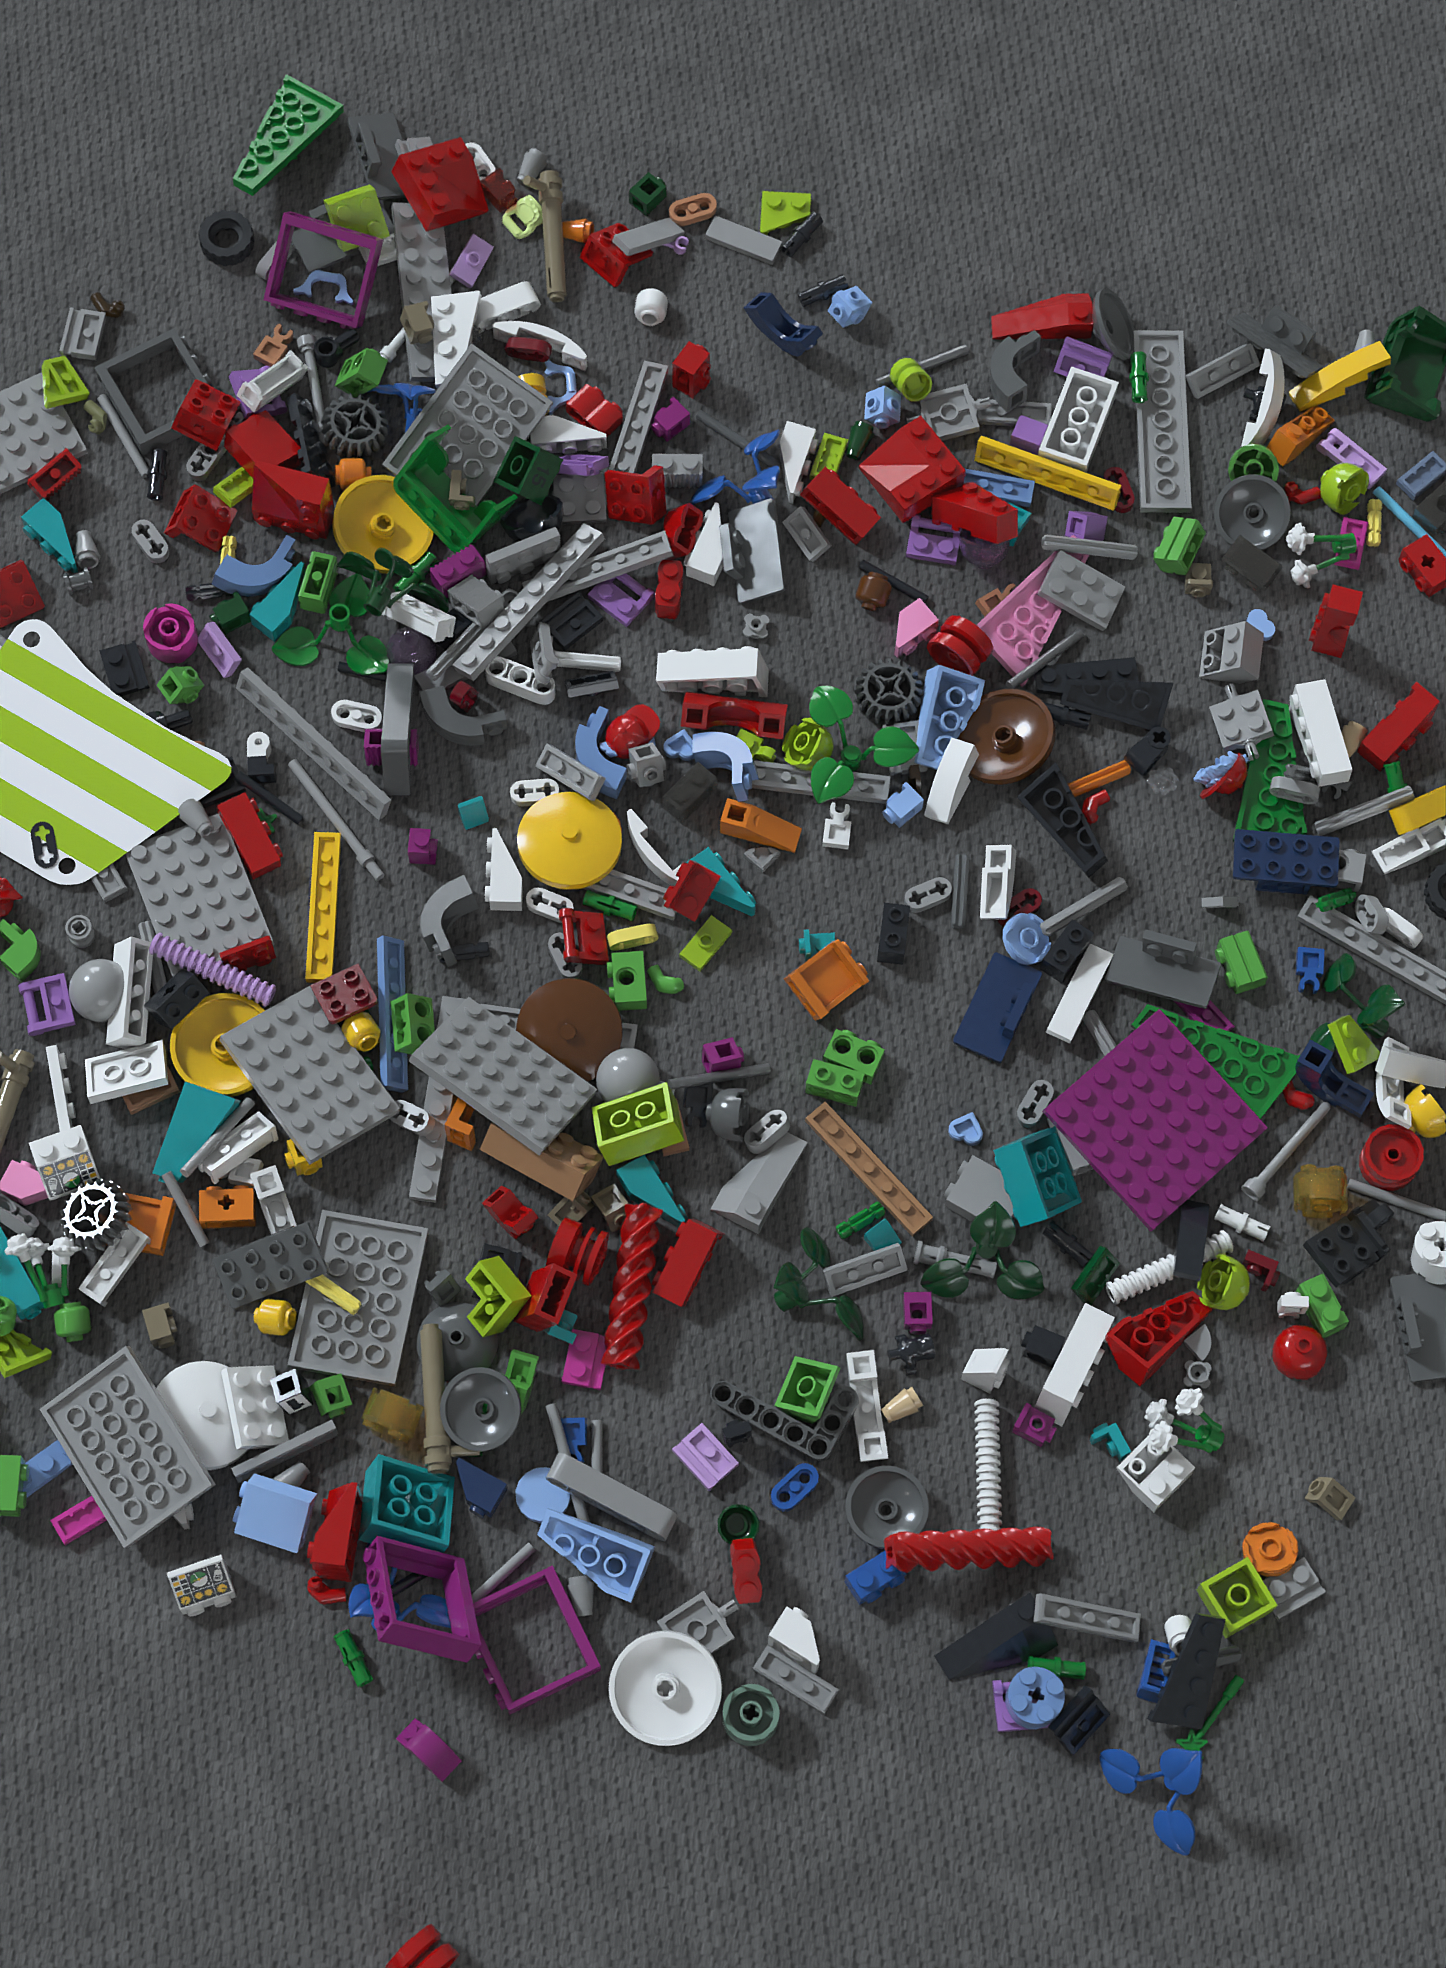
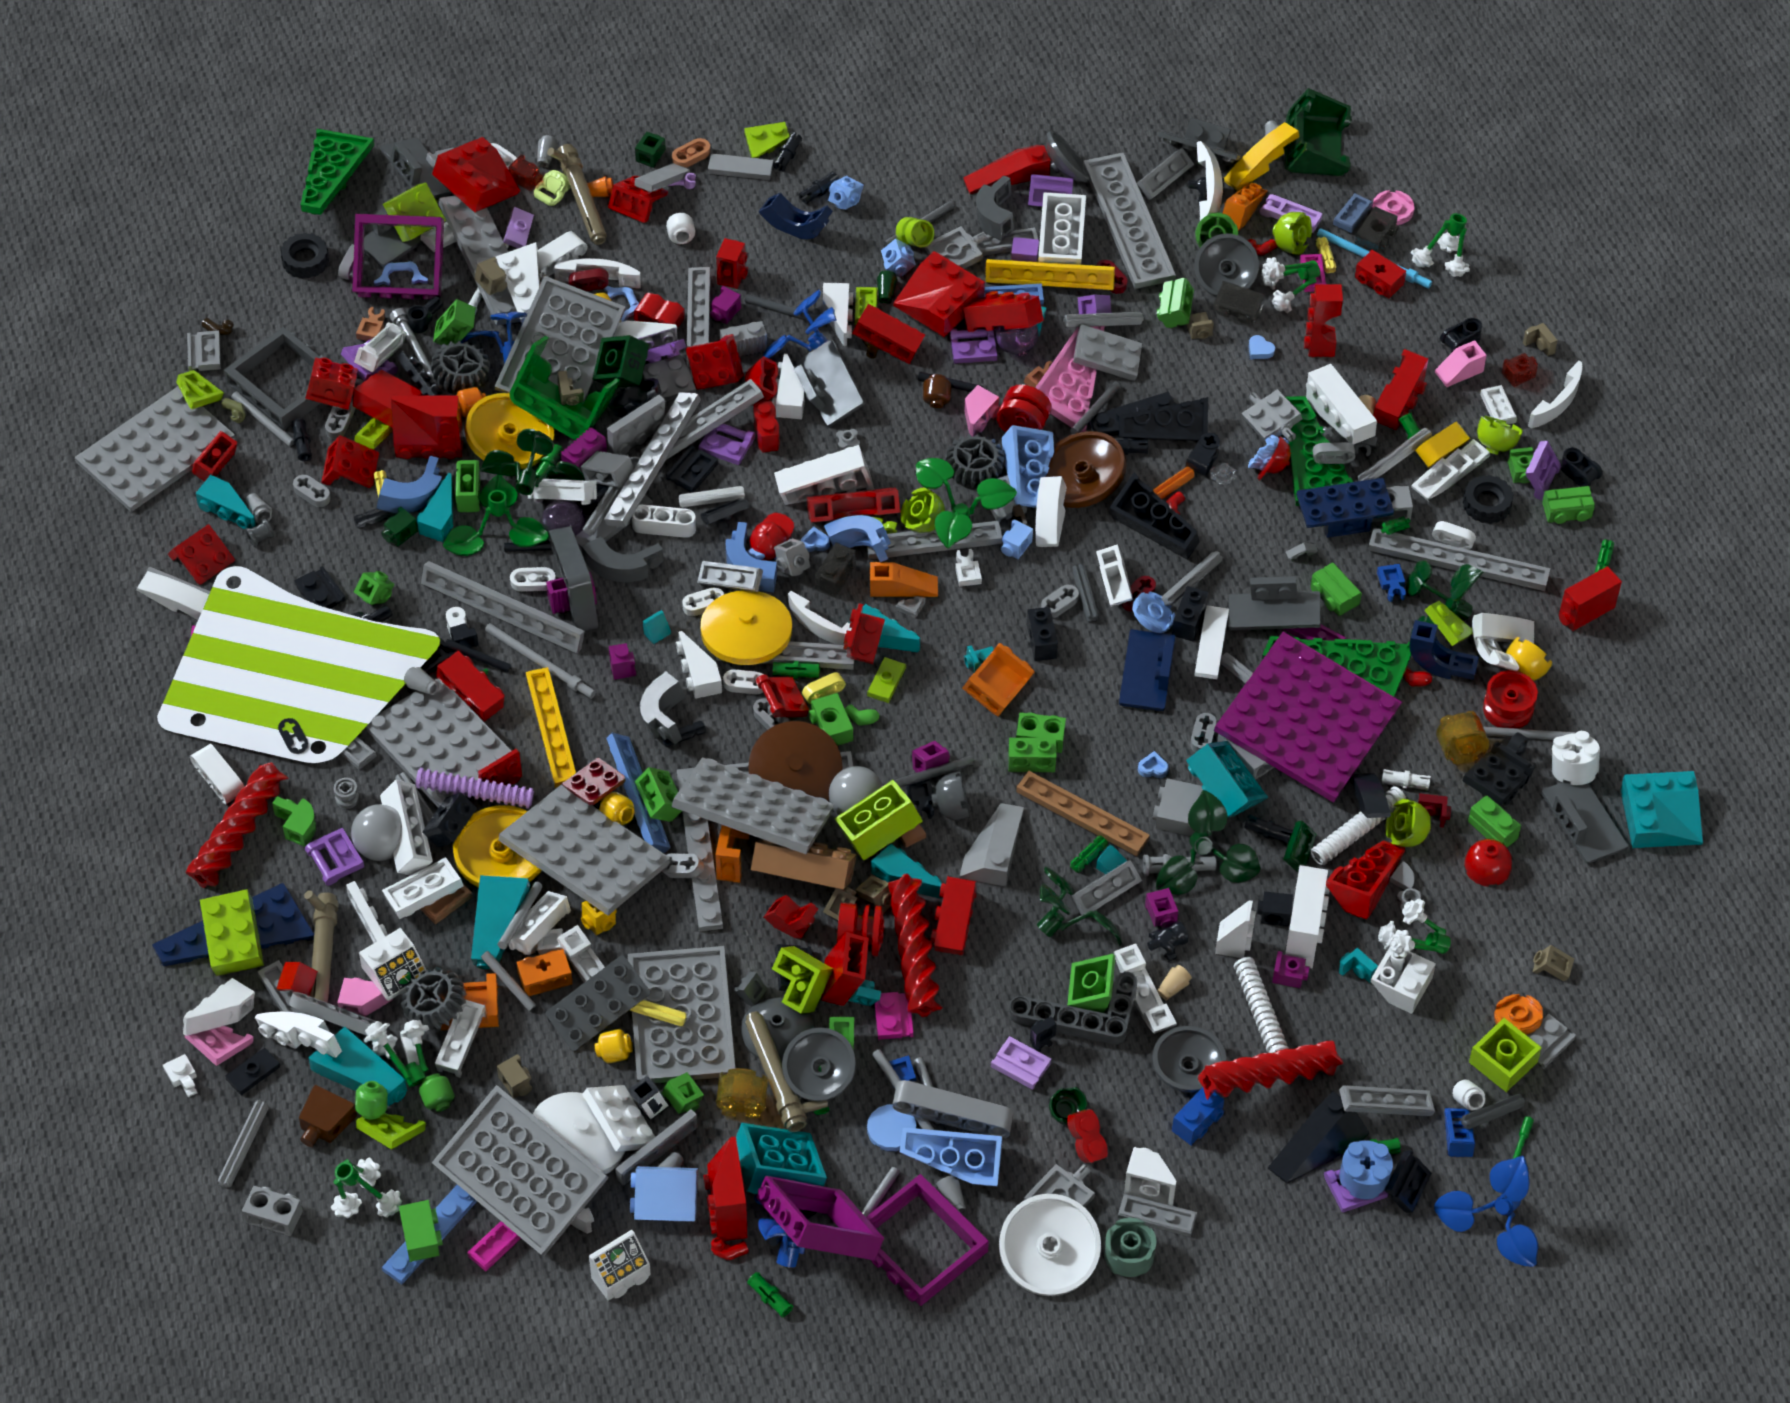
camera: 15 degrees left, 15 degrees down
(170, 633) = (353, 551): dark pink brick -> none
(219, 649) = (398, 556): lavender plate -> none
(429, 1749) = (863, 1344): magenta brick -> none
(464, 696) = (621, 540): dark red beam -> none
(481, 1489) = (836, 1133): dark blue slope -> none
(543, 653) = (678, 493): light grey plate -> none
(767, 1131) = (987, 805): light grey beam -> none
(794, 1488) = (1103, 1068): blue plate -> none
(807, 533) = (867, 362): light grey plate -> none
(1139, 377) = (1100, 190): green pin -> none
(1188, 1688) = (1490, 1123): black wing -> none
(1232, 653) = (1246, 370): light grey slope -> none
(1256, 1186) = (1408, 749): light grey piece -> none
(1292, 1304) = (1470, 825): white plate -> none
(1371, 914) = (1429, 526): light grey beam -> none

